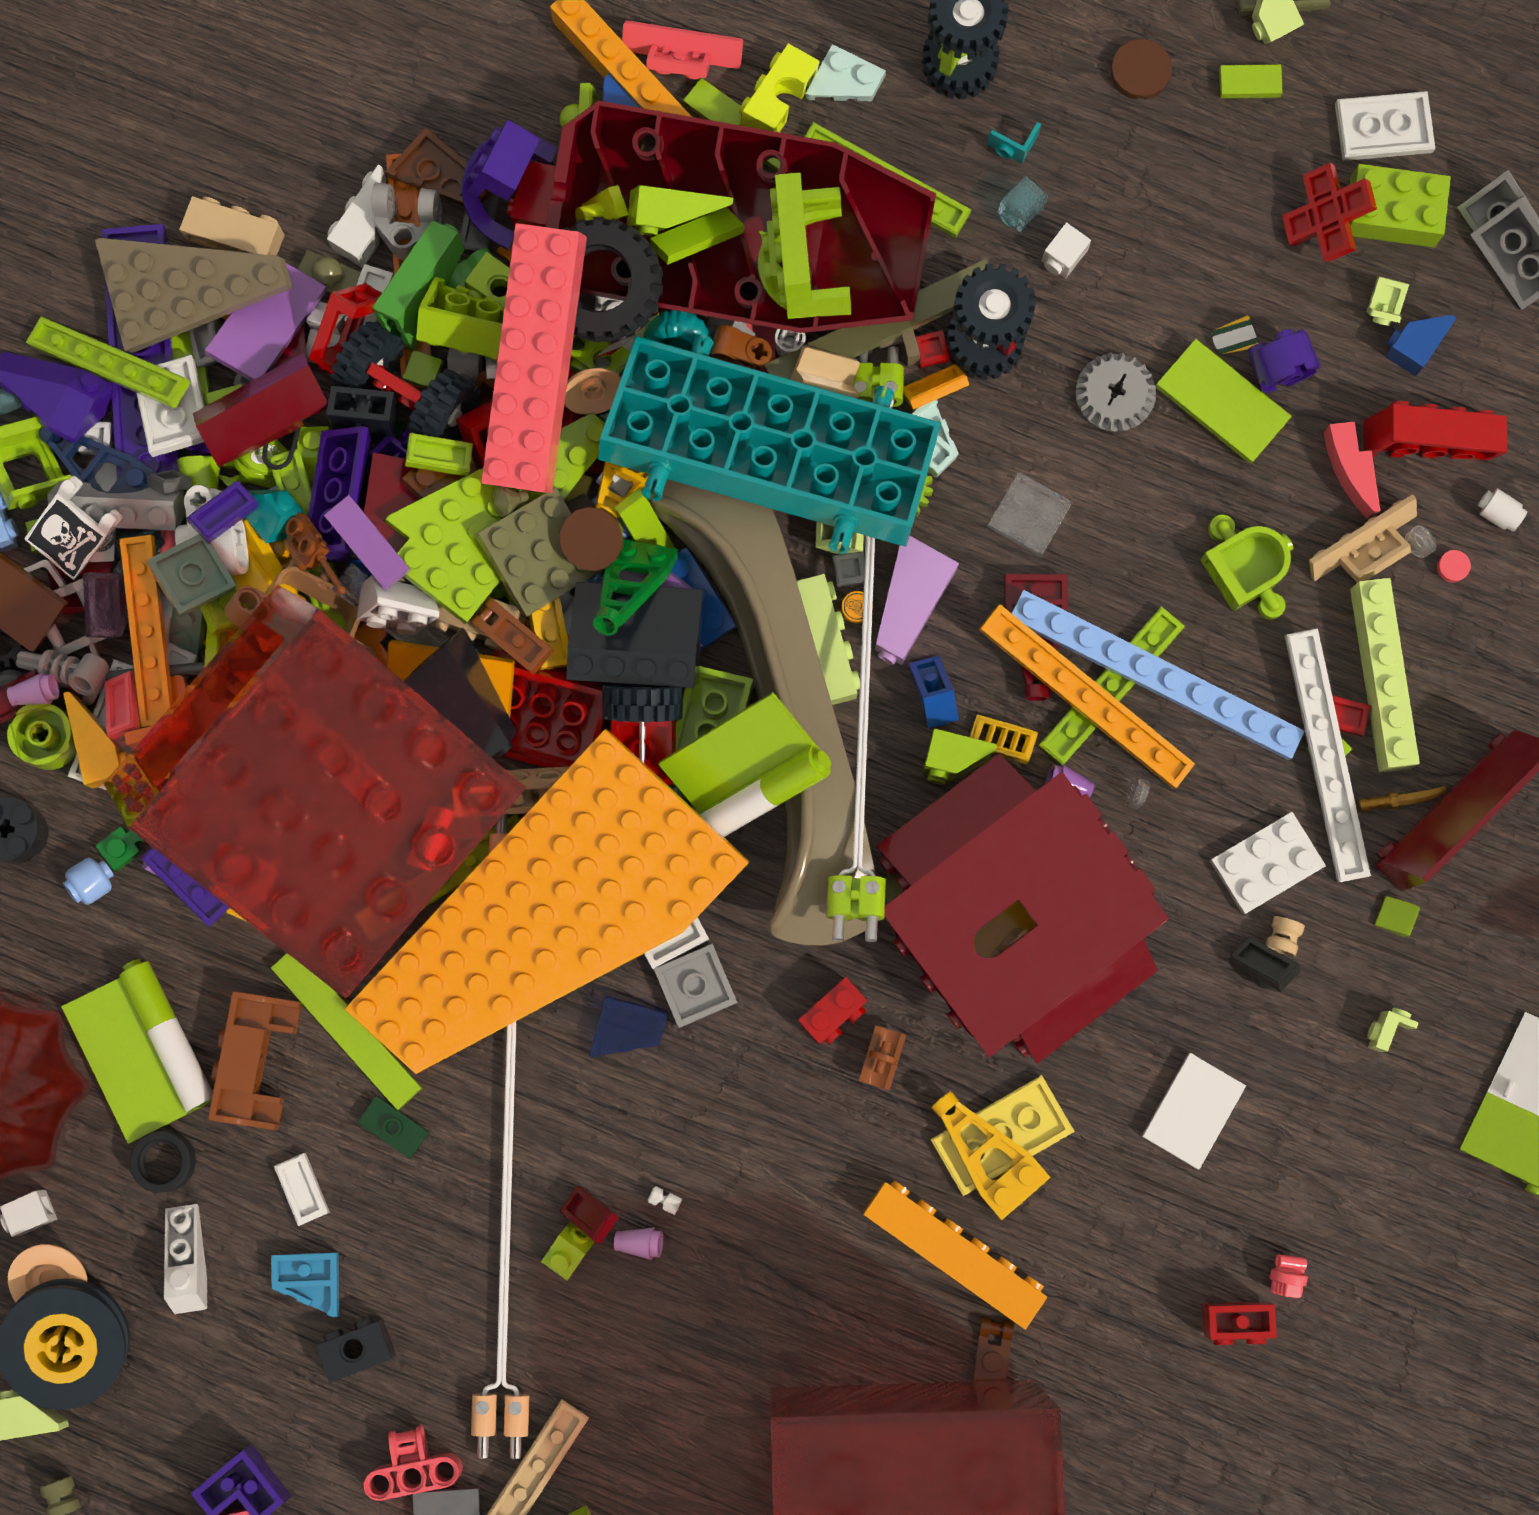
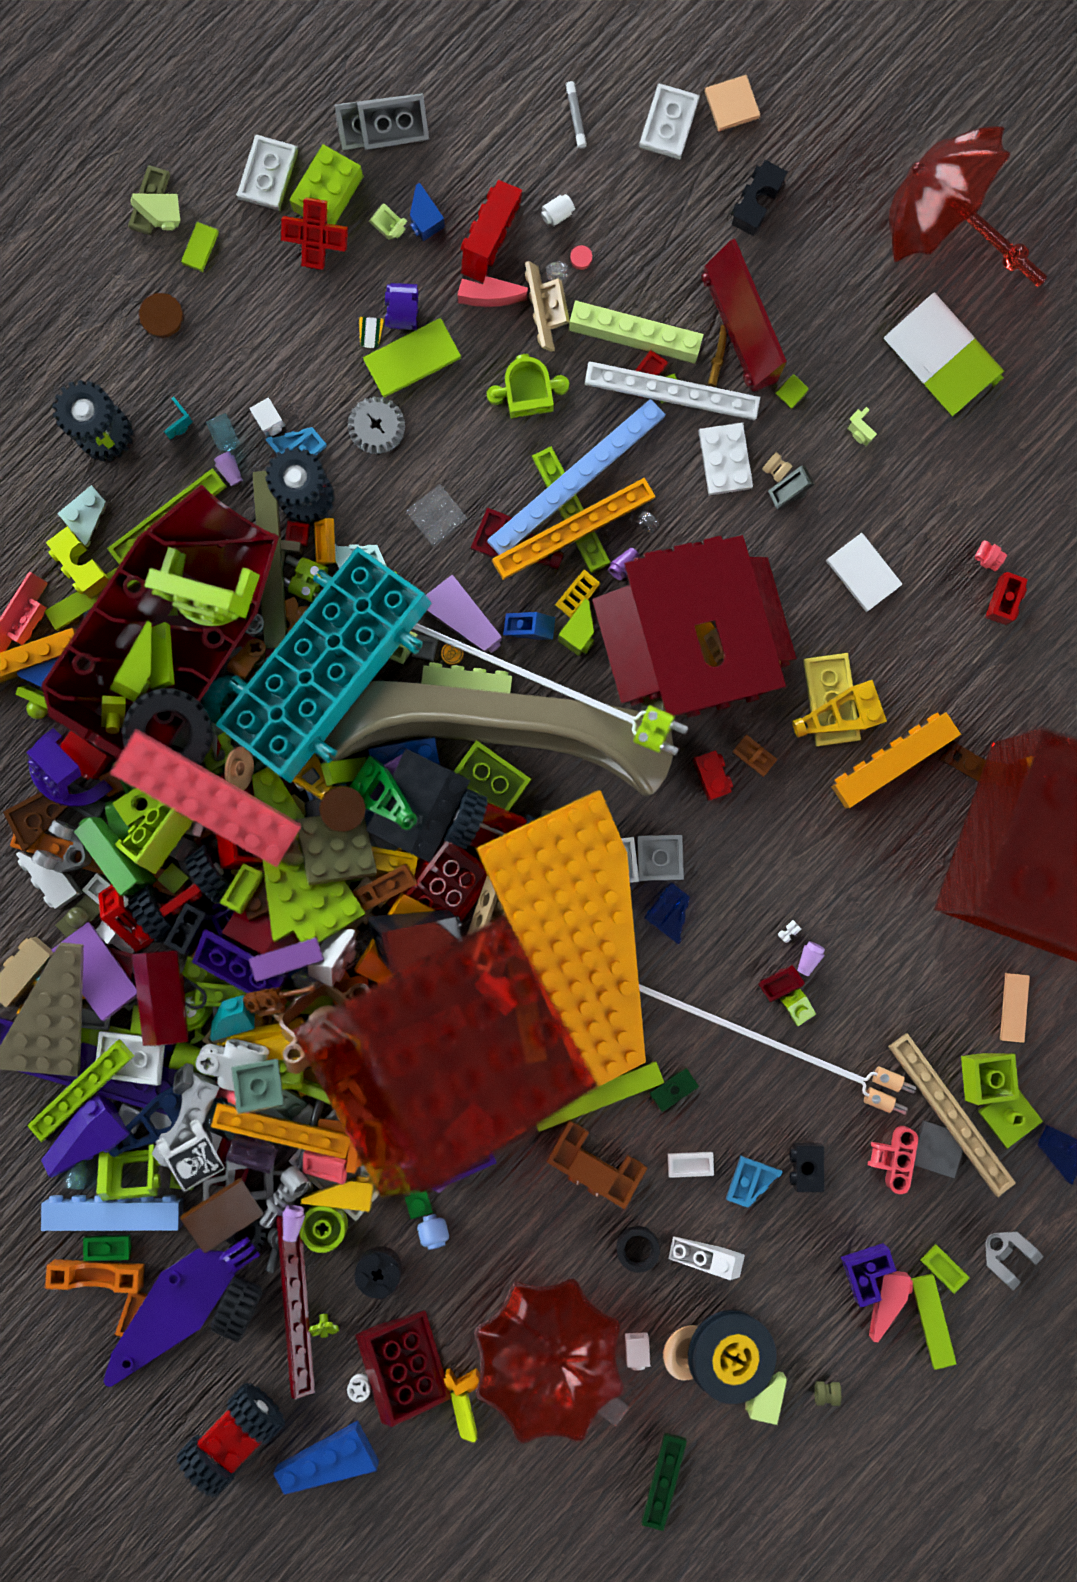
camera: 75 degrees left, 5 degrees up
(138, 1052) = (559, 1239): lime door -> none
(222, 512) = (222, 1049): dark purple tile -> none
(747, 765) = (538, 765): lime door -> none
(826, 371) = (288, 609): tan panel -> none
(979, 229) = (228, 468): none -> lavender cone
(1052, 311) = (306, 439): none -> dark azure wing

